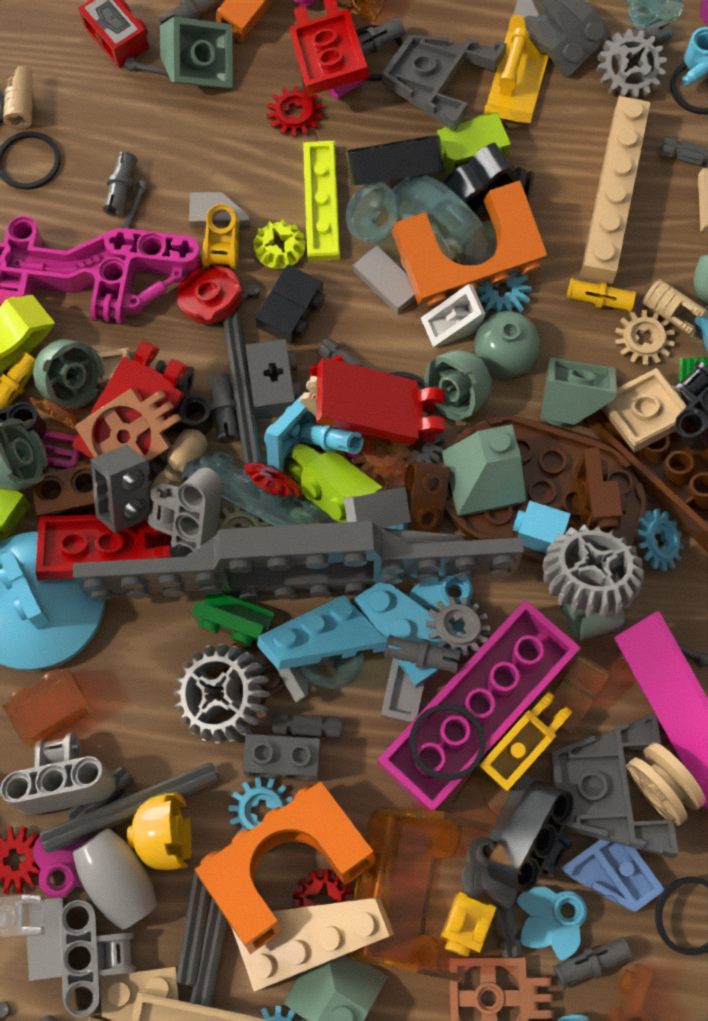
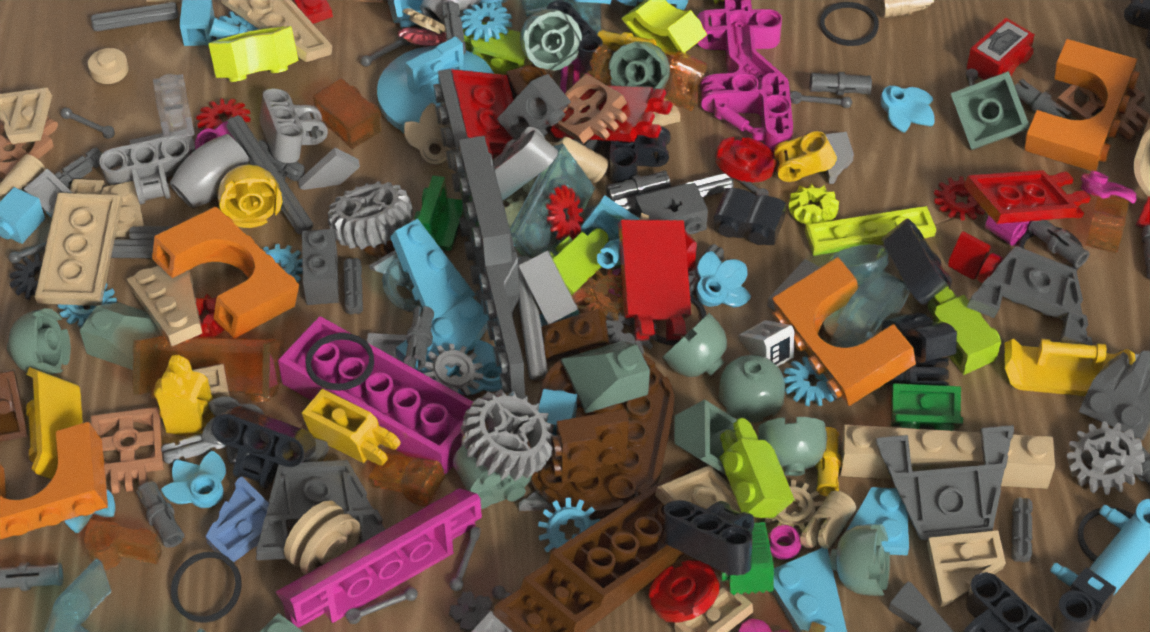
camera: 80 degrees right, 20 degrees down
(78, 325) = (684, 79): none -> clear orange plate
(106, 616) = (426, 133): none -> tan plate
(136, 737) = (330, 170): none -> light grey tile
(165, 130) = (907, 106): none -> medium azure plate
(369, 347) = (724, 279): none -> medium azure plate
(375, 120) = (968, 255): none -> red slope
(397, 104) = (989, 267): none -> red tile
(424, 897) = (216, 379): none -> tan tile
(556, 196) = (926, 406): none -> green bracket
(590, 316) = (795, 444): none -> sand green cylinder
(628, 356) = (754, 472): none -> lime hinge
(668, 192) = (950, 498): none -> dark grey wing
(670, 262) = (885, 508): none -> medium azure wing
(687, 342) = (786, 534): none -> dark pink plate

